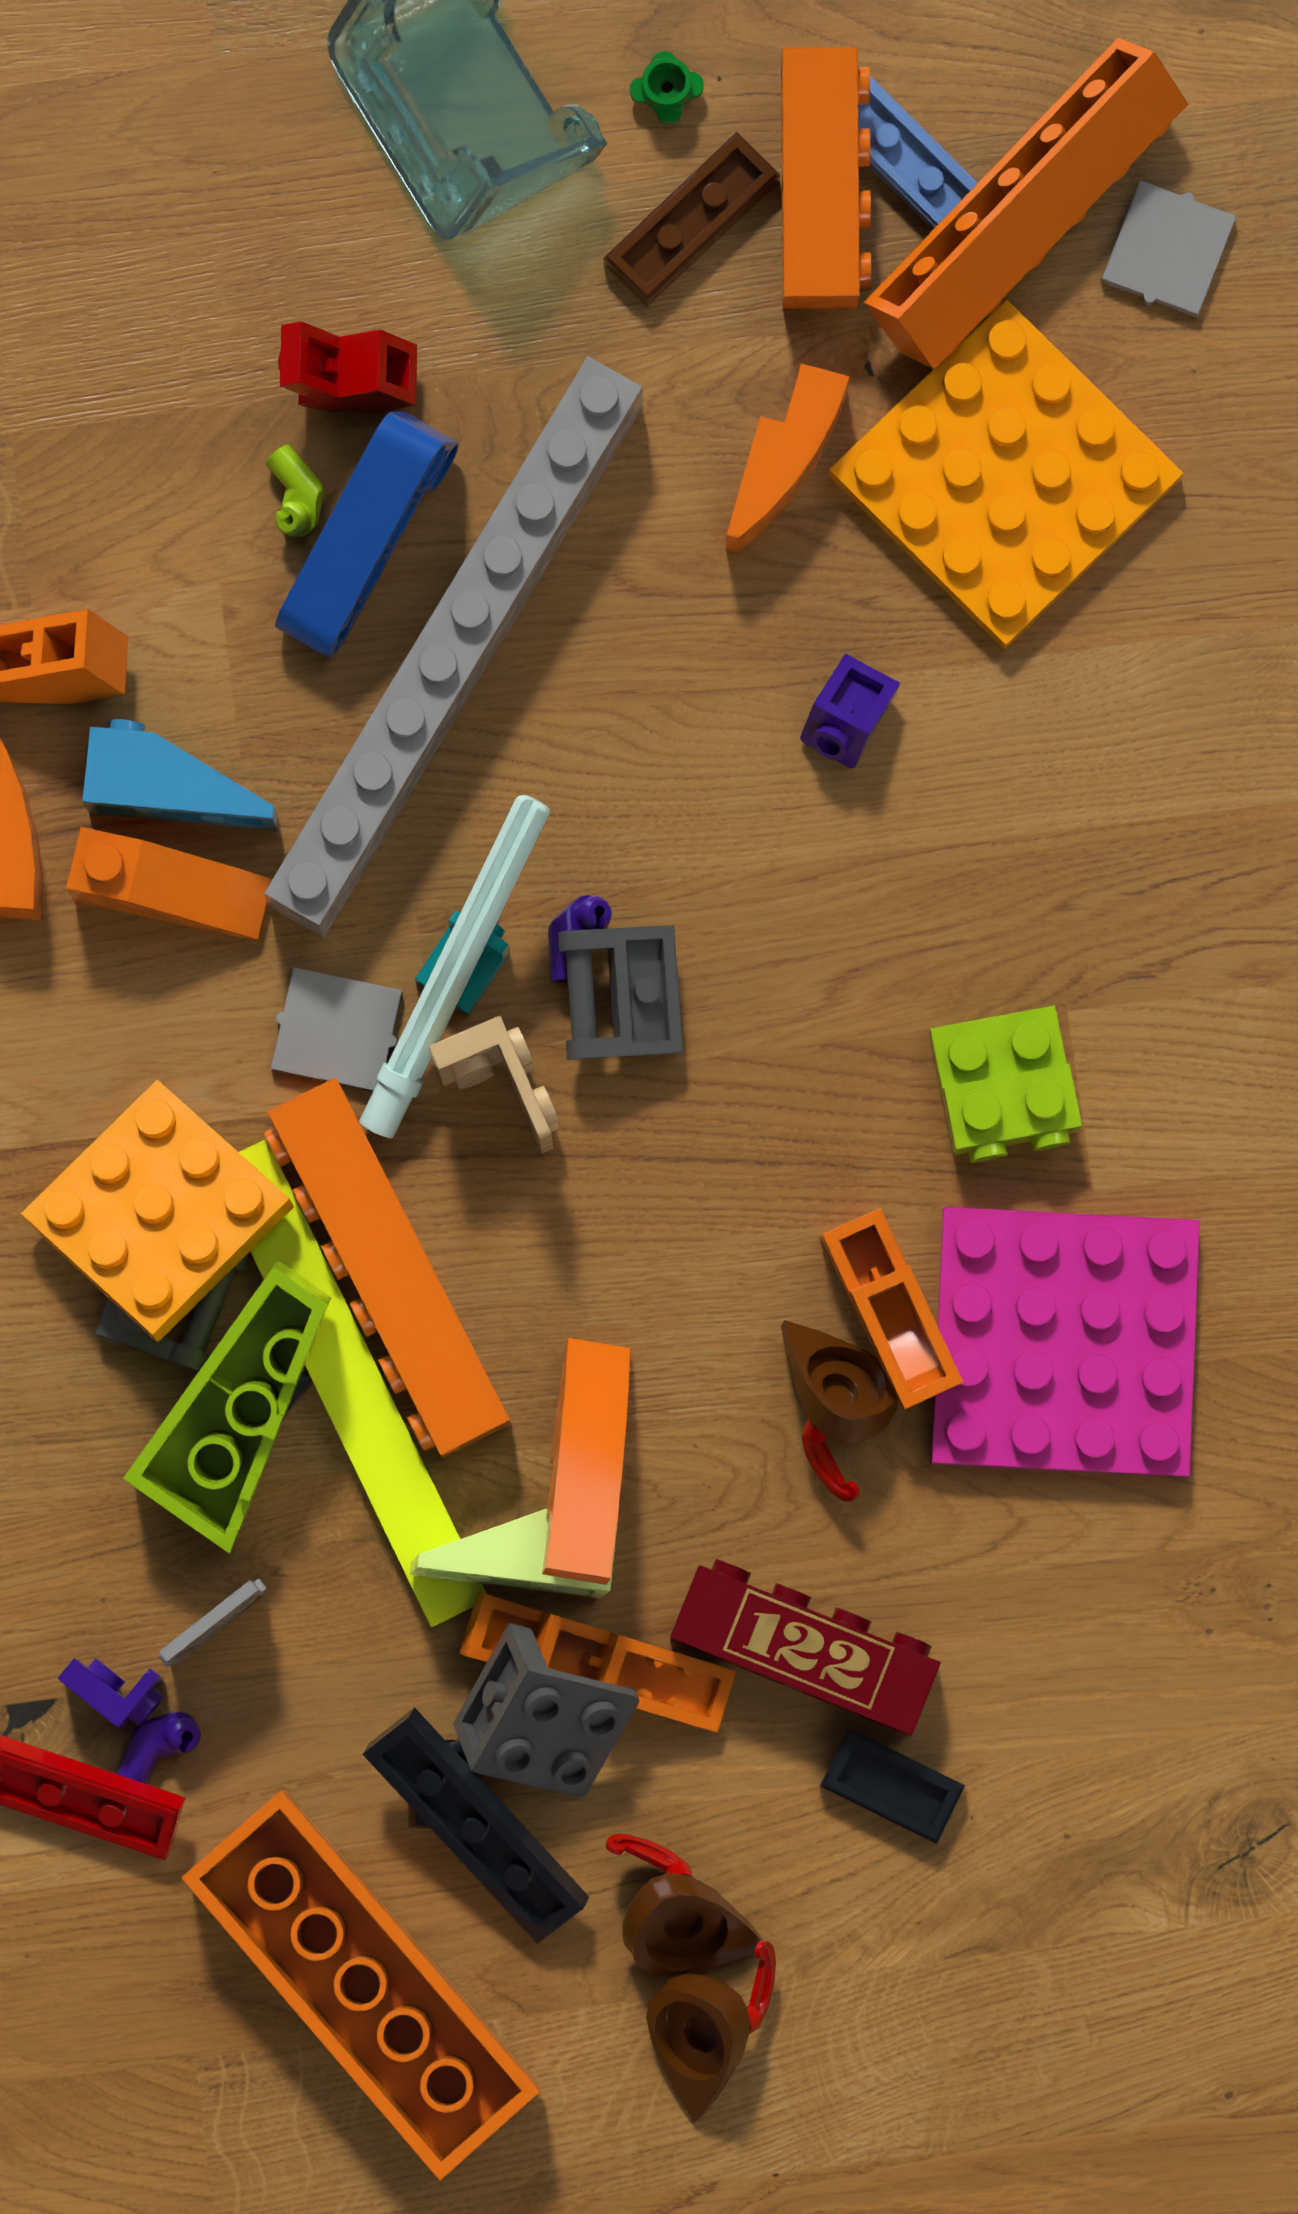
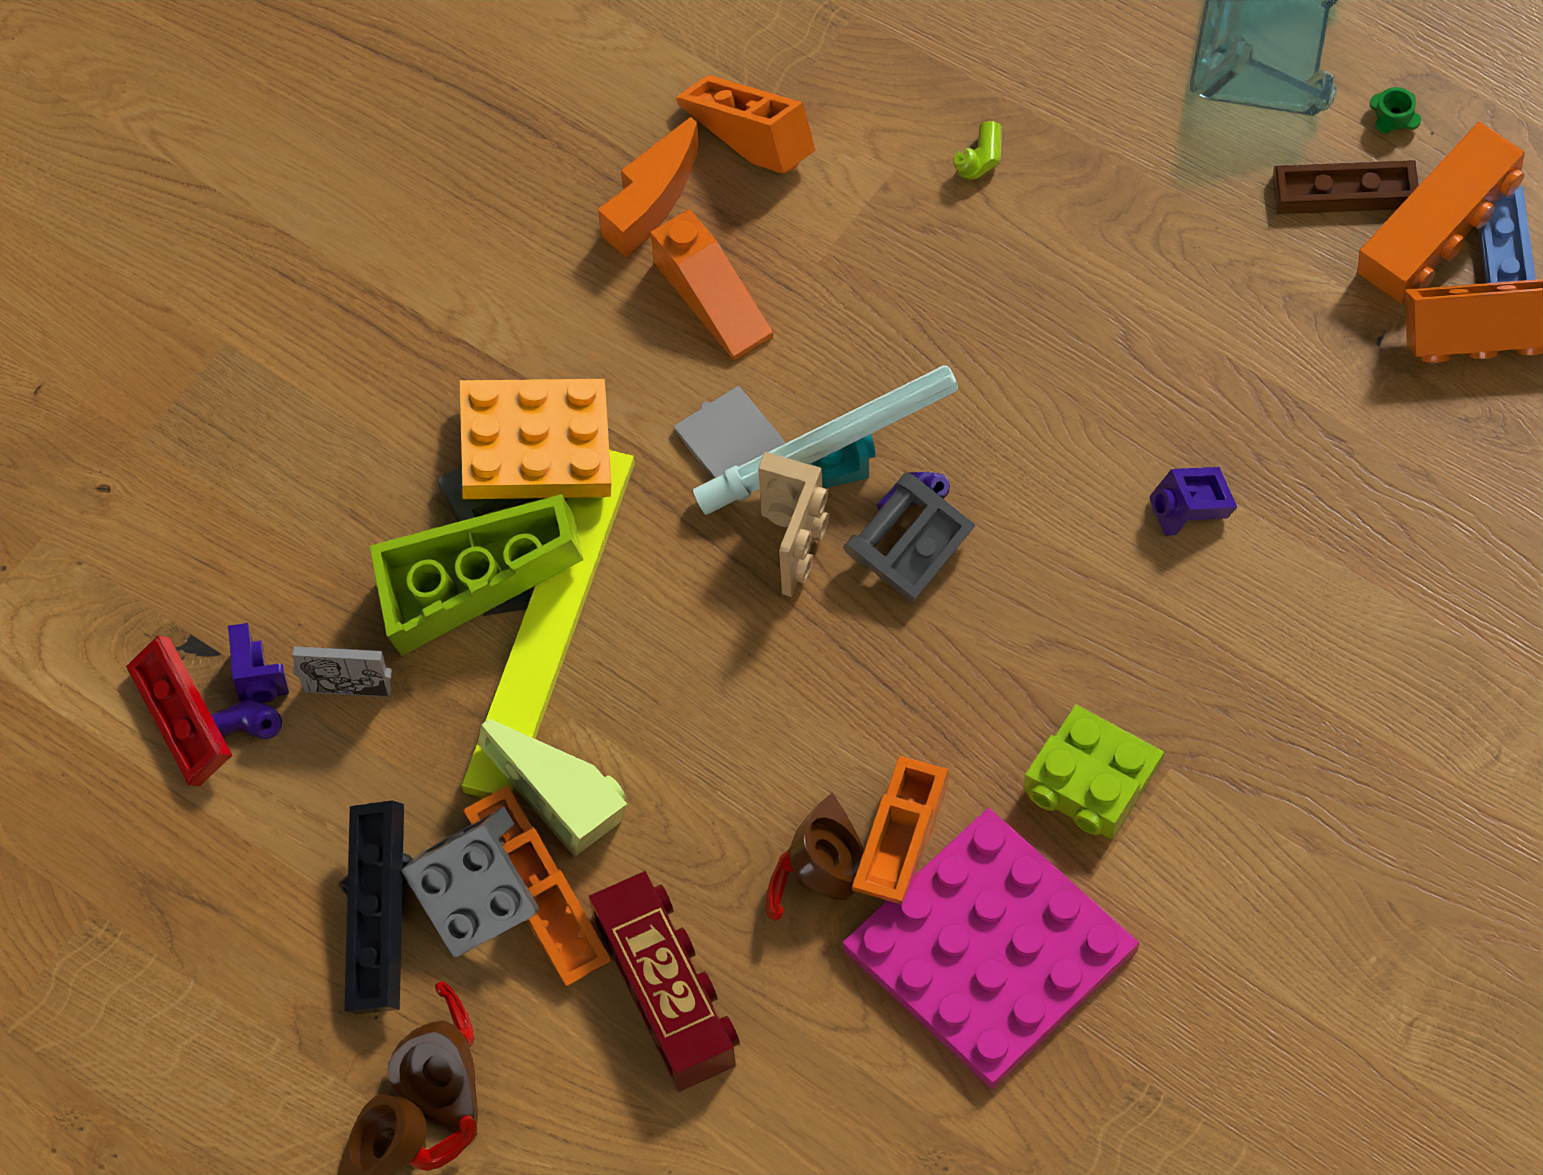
camera: 45 degrees right, 20 degrees down
(153, 779) = (754, 226): dark azure slope -> none
(347, 372) = (1064, 111): red brick -> none
(362, 1984) = (221, 939): orange brick -> none
(363, 530) = (1001, 187): blue beam -> none
(389, 1269) = (630, 577): orange brick -> none
(455, 647) = (991, 289): light grey brick -> none
(587, 1461) = (636, 758): orange slope -> none
(786, 453) = (1283, 338): orange slope -> none
(892, 1785) = (639, 1108): black tile -> none
(1005, 474) = (1409, 452): light orange plate -> none

